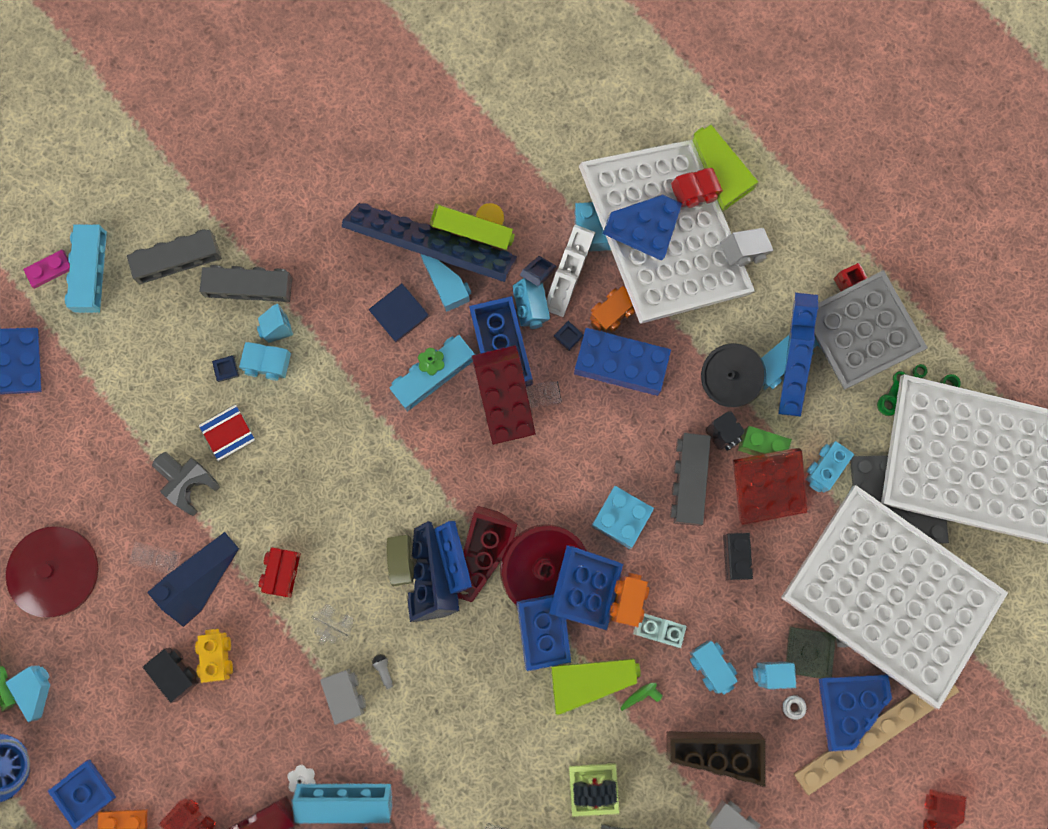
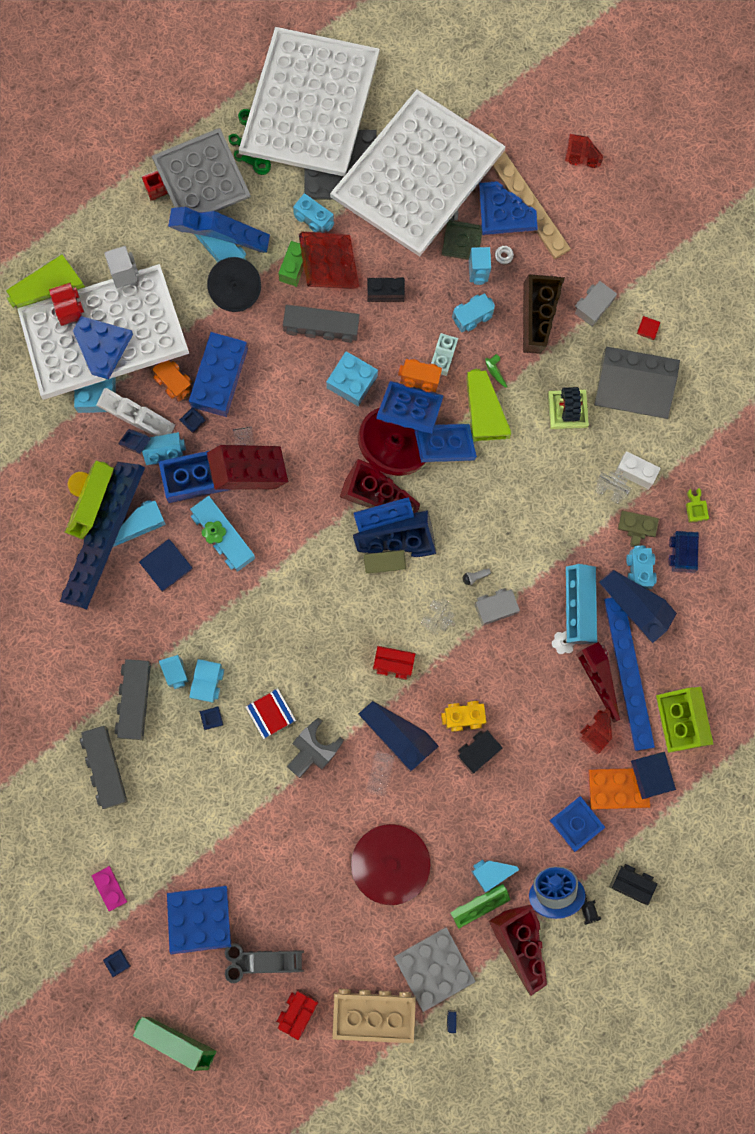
camera: 95 degrees left, 0 degrees up
(86, 268) = (111, 849): medium azure brick -> none
(725, 431) = (282, 292): black brick -> none

